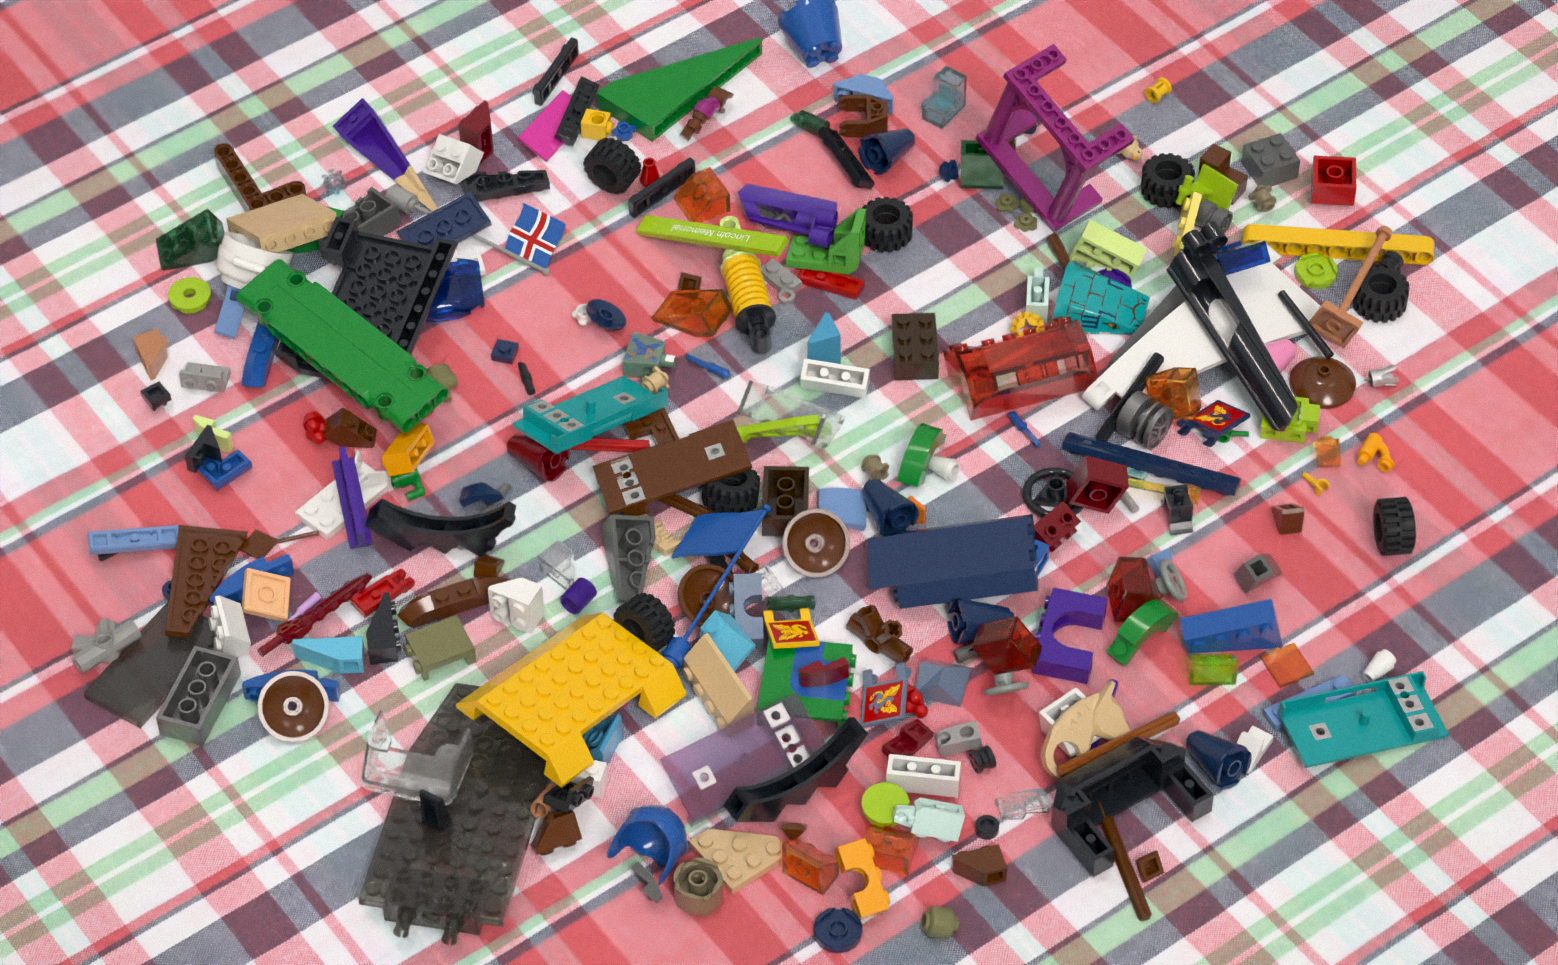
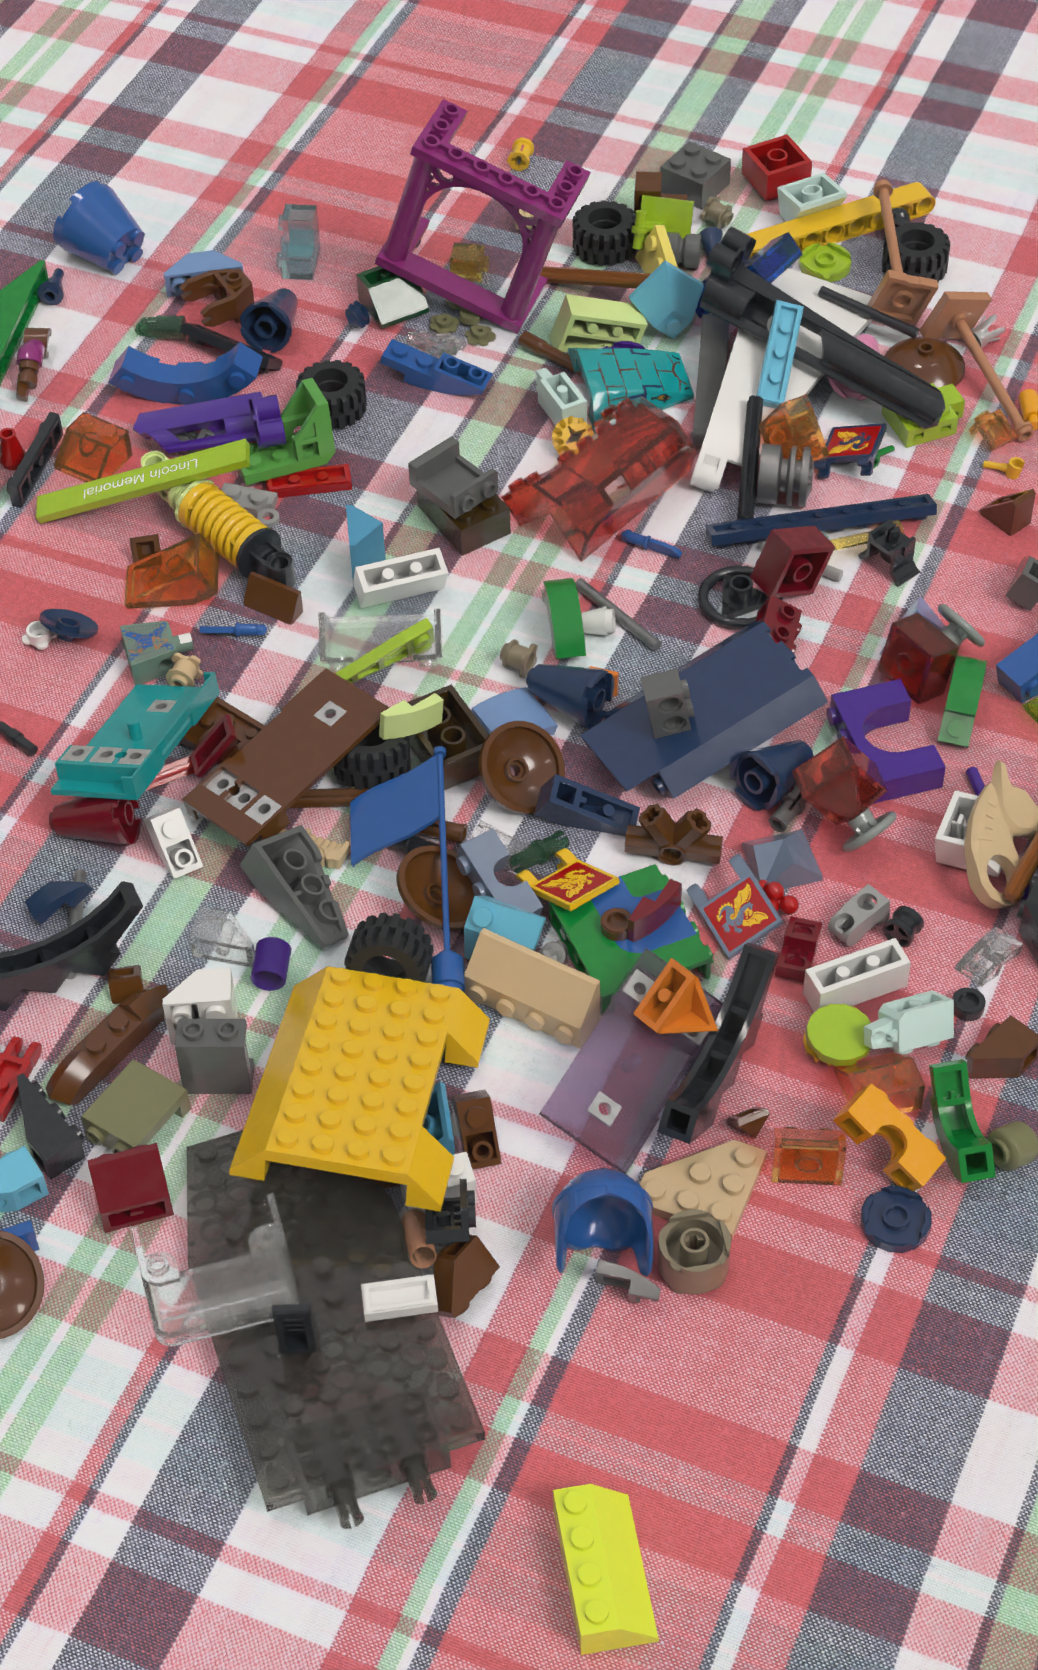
camera: 30 degrees left, 0 degrees up
(405, 689) = (130, 1187): none -> dark red slope
(499, 634) = (214, 1056): none -> dark grey panel
(507, 825) = (399, 1298): none -> white tile
(573, 491) = (173, 842): none -> white slope
(628, 754) = (477, 1128): none -> reddish brown slope
(636, 441) = (214, 747): none -> dark red slope
(747, 356) = (273, 598): none -> reddish brown slope
(748, 671) = (555, 950): none -> light grey axle
(757, 61) = (52, 289): none -> dark blue cone
(757, 478) = (408, 720): none -> yellowish green slope
(786, 734) = (676, 1003): none -> orange slope
(792, 669) = (615, 924): none -> reddish brown tile
(797, 172) = (186, 381): none -> blue brick
(839, 587) = (584, 807): none -> dark blue slope
(910, 323) = (451, 479): none -> dark grey panel
(916, 891) = (960, 1138): none -> green arch
(922, 542) = (667, 702): none -> dark grey brick
(964, 468) = (621, 617): none -> flat silver bar
(969, 238) = (441, 375): none -> blue slope
(986, 217) = (436, 343): none -> clear hinge
(1052, 162) = (469, 261): none -> clear yellow brick
(1141, 218) = (593, 277): none -> dark orange axle
(1159, 250) = (668, 299): none -> medium azure slope
(1197, 330) = (779, 353): none -> medium azure tile
(1242, 217) = (709, 238): none -> dark blue cone
(1335, 214) = (809, 196): none -> light aqua slope
(1363, 356) = (954, 318): none -> nougat tile

